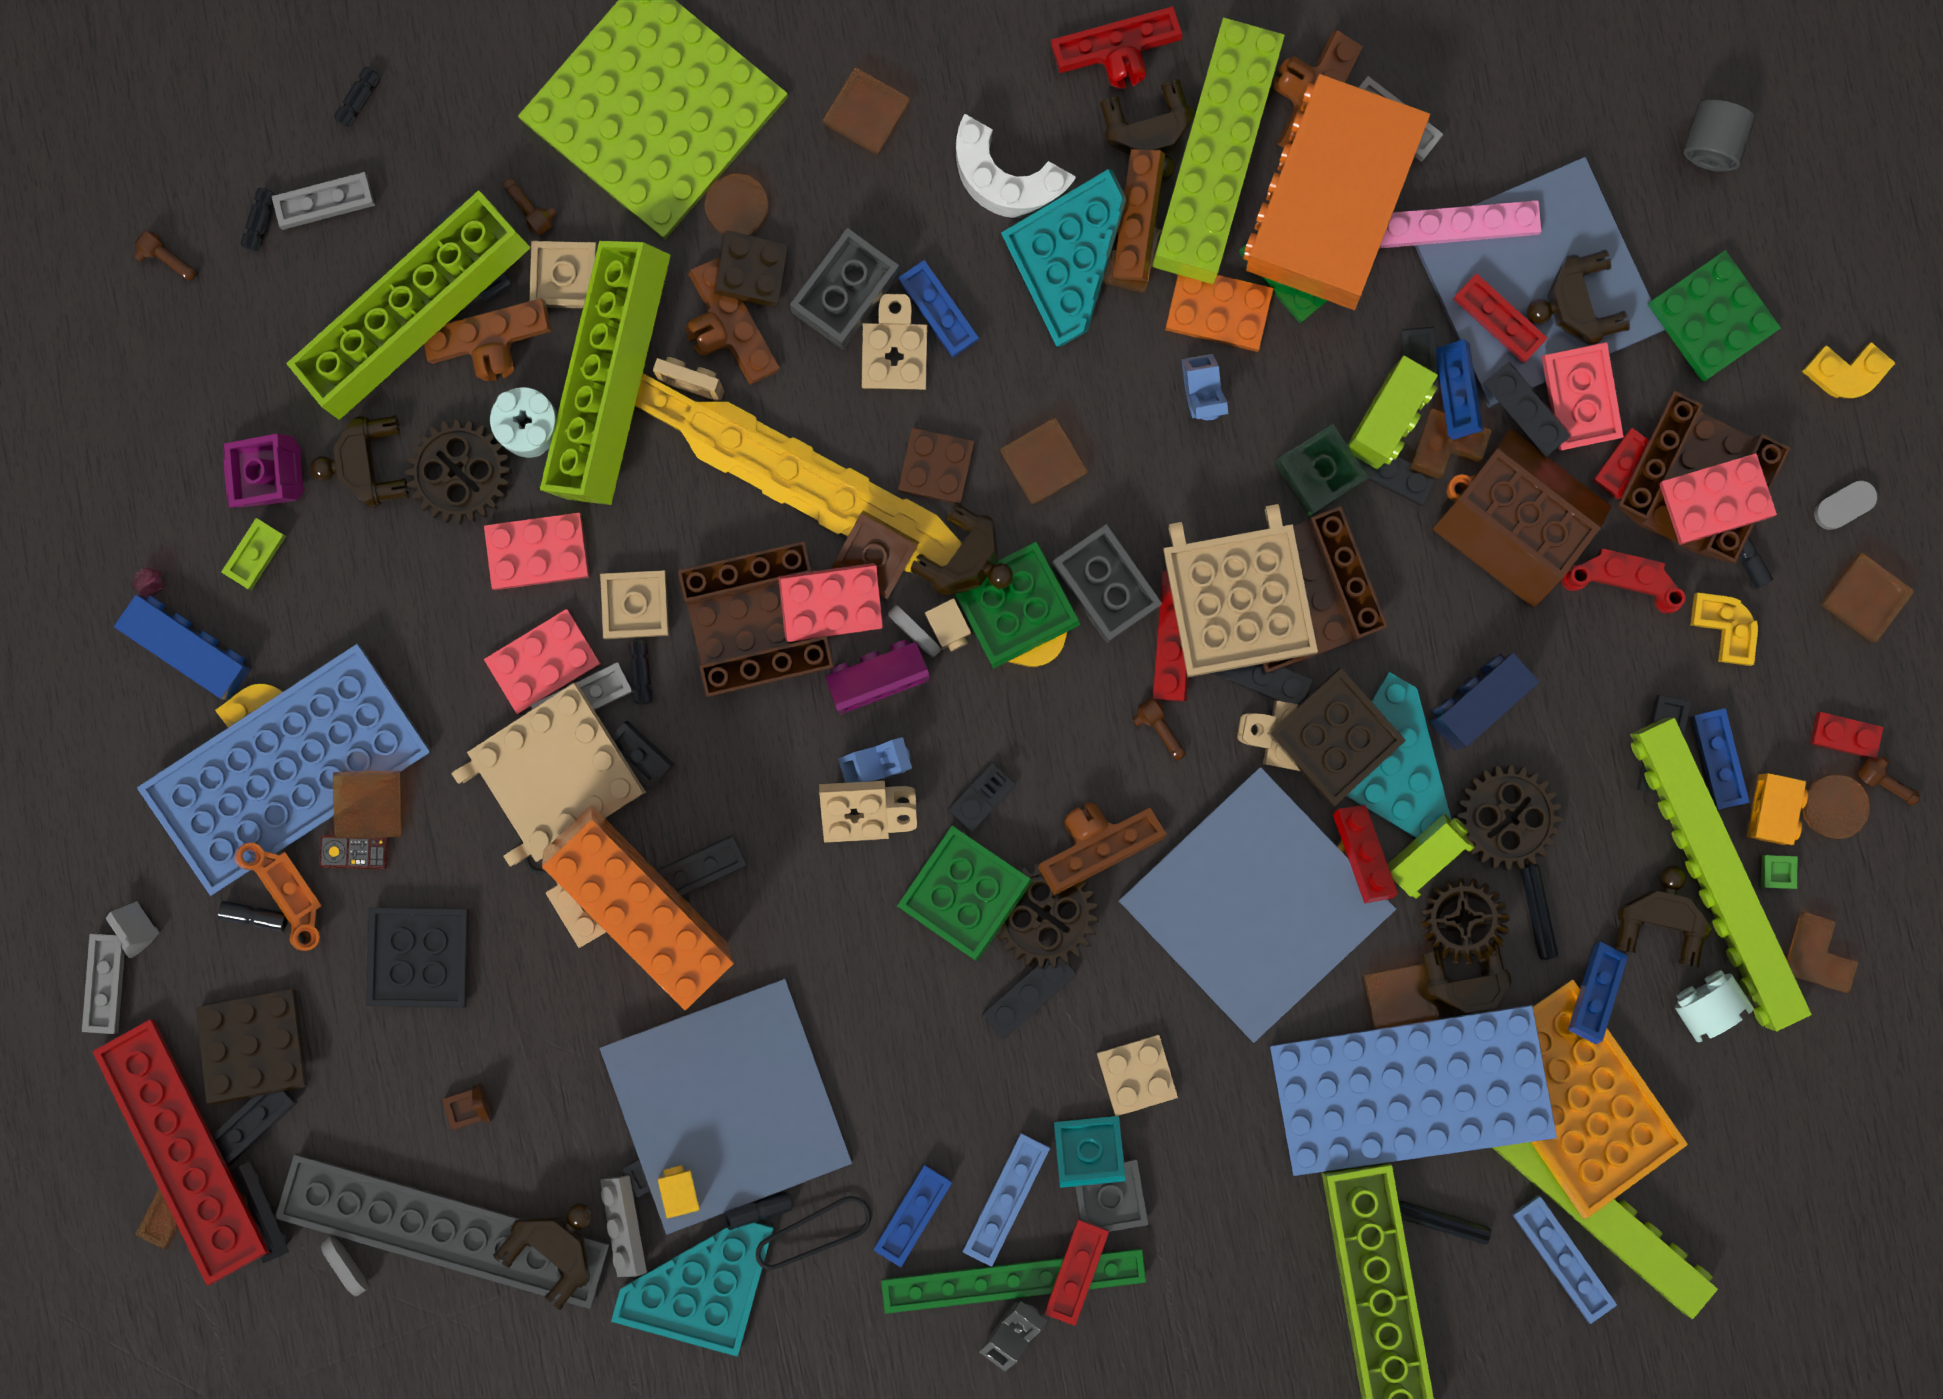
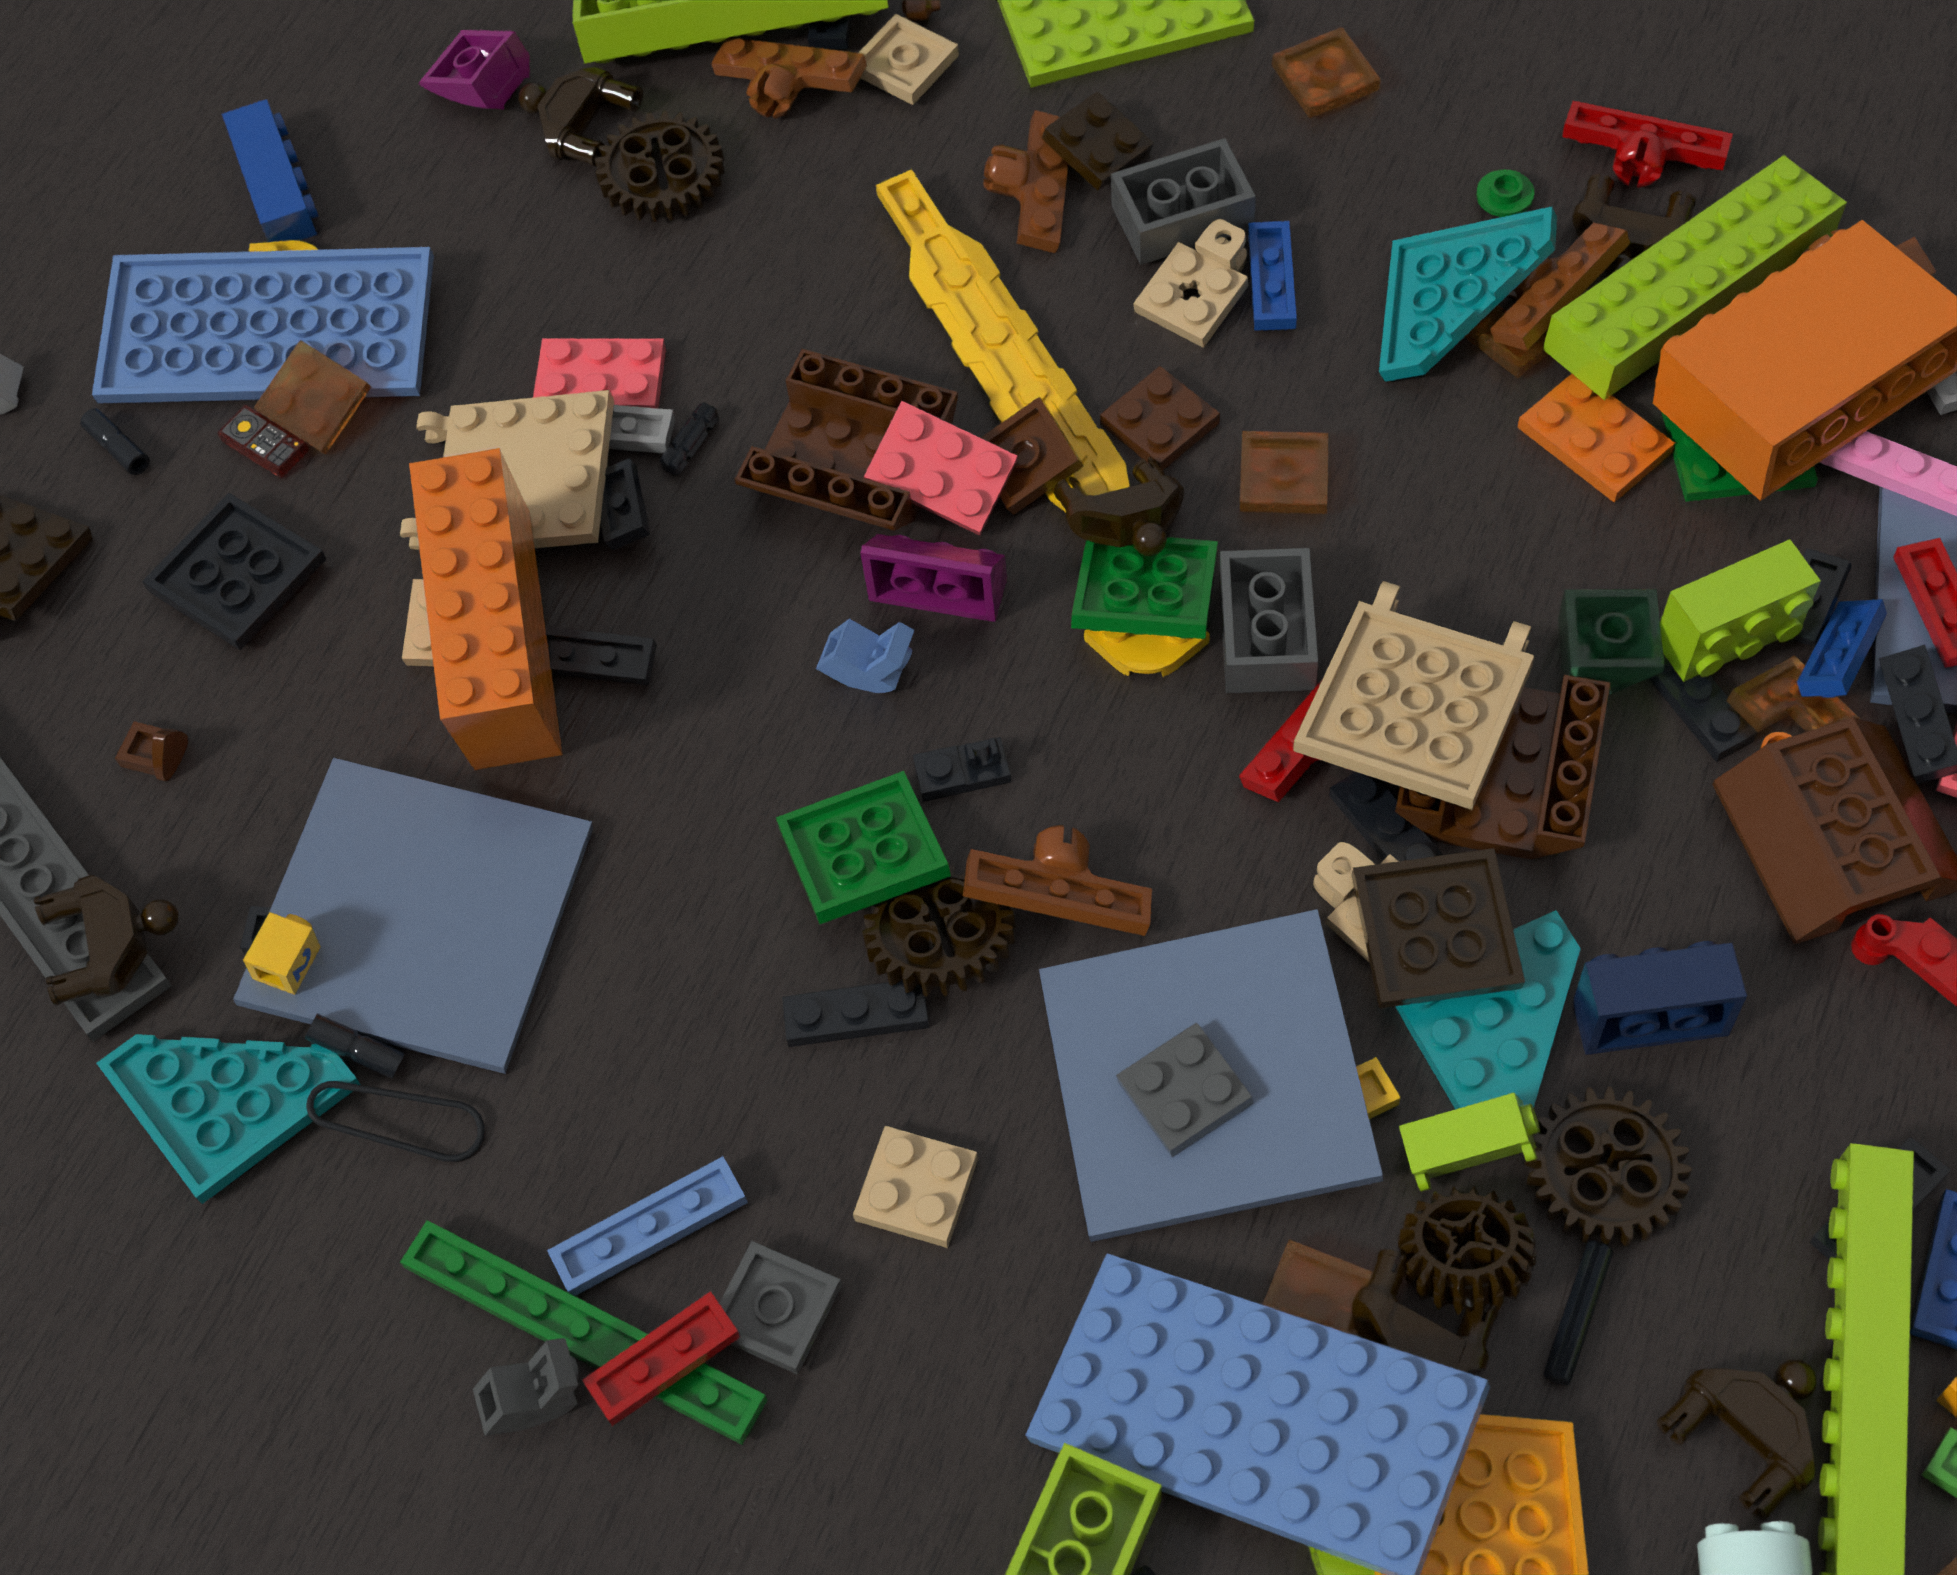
camera: 45 degrees right, 25 degrees down
(148, 581) = (291, 115): clear pink plate -> none
(253, 554) = (406, 134): lime plate -> none
(287, 889) = (167, 426): orange plate -> none
(511, 410) = (760, 154): light aqua brick -> none
(536, 551) = (678, 277): coral plate -> none
(605, 371) = (874, 145): lime brick -> none
(623, 1226) = (197, 969): light grey plate -> none
(634, 604) = (735, 372): tan plate -> none
(699, 382) = (954, 191): tan plate -> none
(736, 204) = (1131, 87): clear orange tile -> none
(876, 807) = (835, 703): tan plate -> none
(912, 1215) = (524, 1173): blue plate -> none
(917, 634) = (1014, 557): light grey tile -> none
(948, 625) = (1055, 568): tan brick -> none
(1000, 191) = (1418, 198): white brick -> none
(1049, 143) = (1505, 193): none -> green piece
(1089, 1151) = (788, 1228): teal plate -> none
(1152, 714) = (1225, 791): reddish brown piece -> none
(1204, 387) = (1522, 492): medium blue brick -> none
(1254, 927) = (1184, 1089): none -> dark grey plate
(1365, 854) = (1384, 1086): red plate -> none
(1598, 993) = (1596, 1454): blue plate -> none

